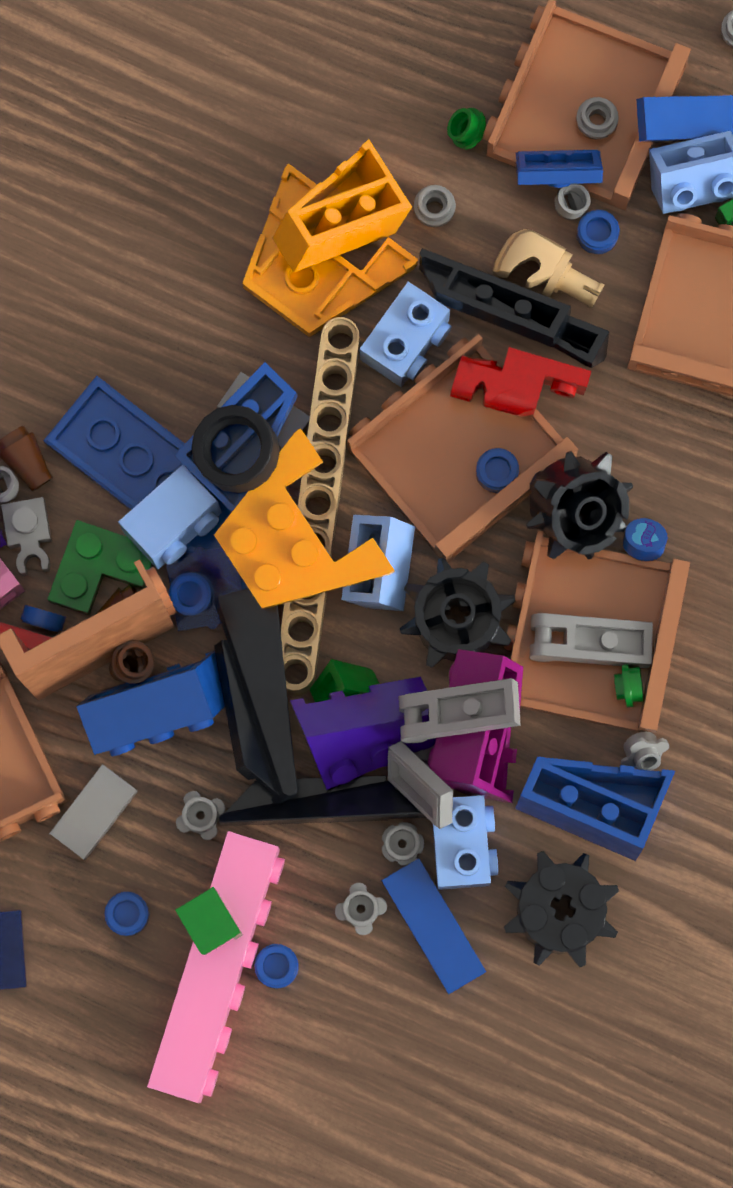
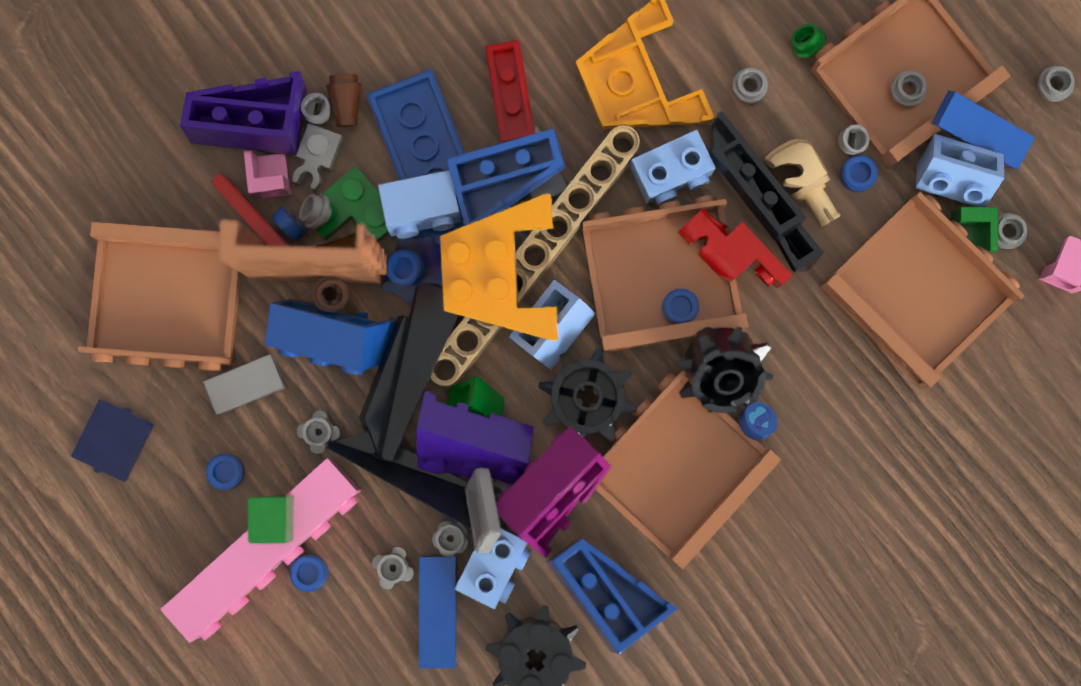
camera: 30 degrees right, 5 degrees up
(66, 587) = (315, 211): none -> light grey plate
(191, 352) = (509, 90): none -> red tile
(216, 422) = (469, 164): black tyre -> none
(343, 212) = (679, 50): light orange wedge -> none
(460, 710) = (543, 476): light grey plate -> none
(558, 167) = (859, 109): blue plate -> none
(592, 640) = (675, 474): light grey plate -> none
(629, 685) = (682, 523): green plate -> none
(644, 751) = (664, 576): light grey plate -> none

